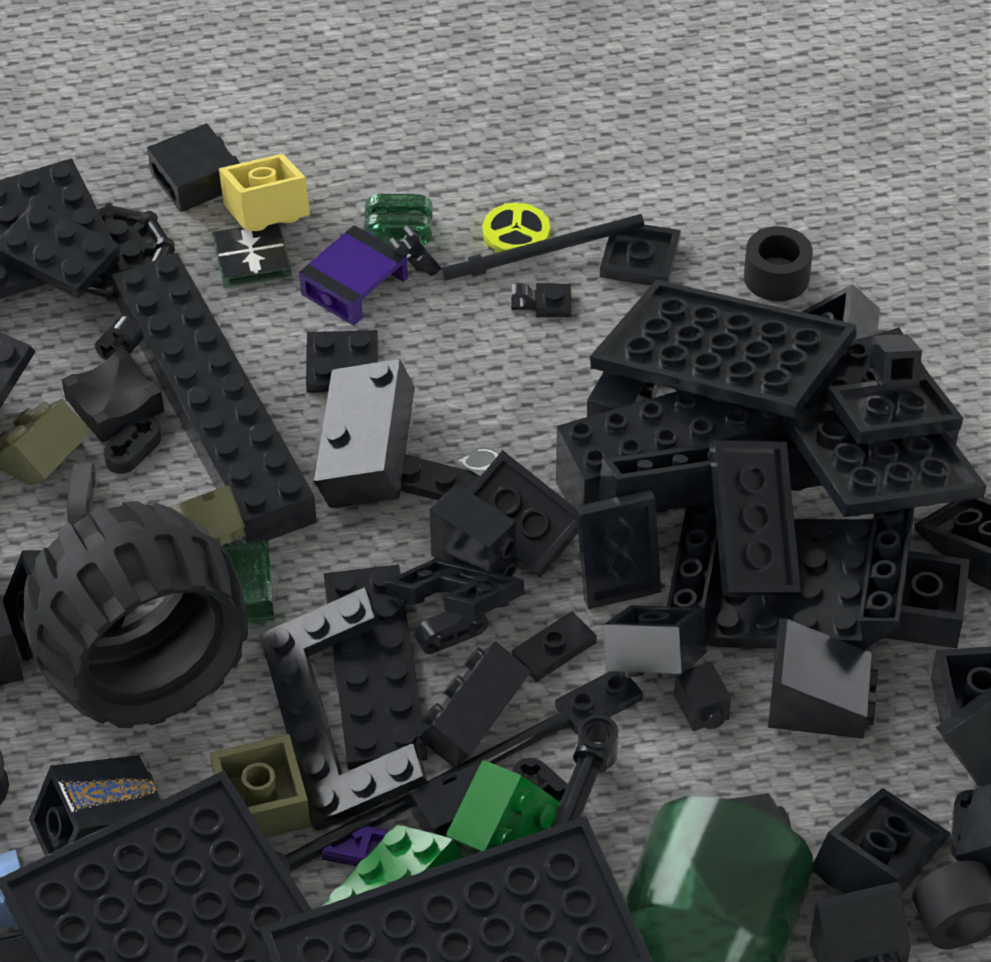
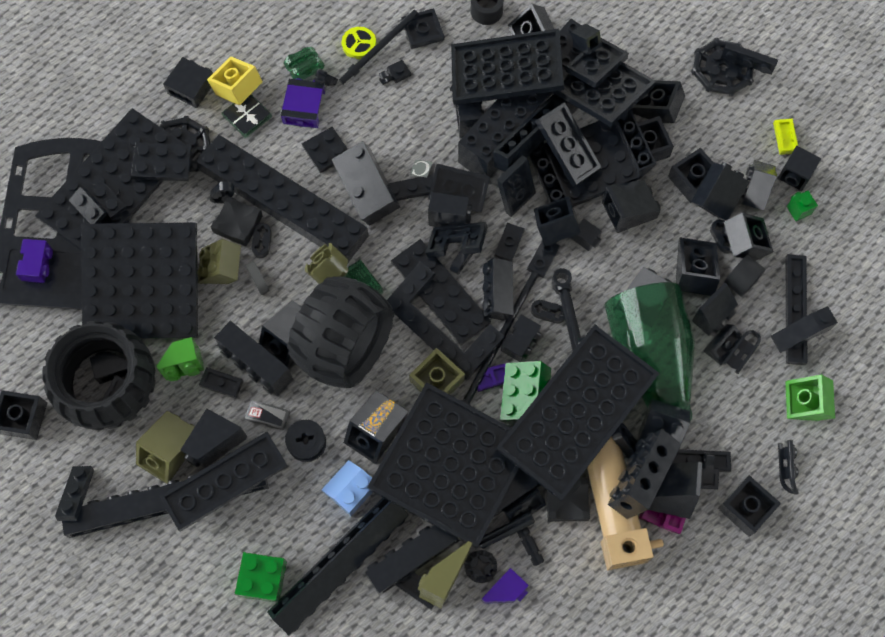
camera: 30 degrees left, 20 degrees up
(500, 809) = (550, 338): green brick -> none

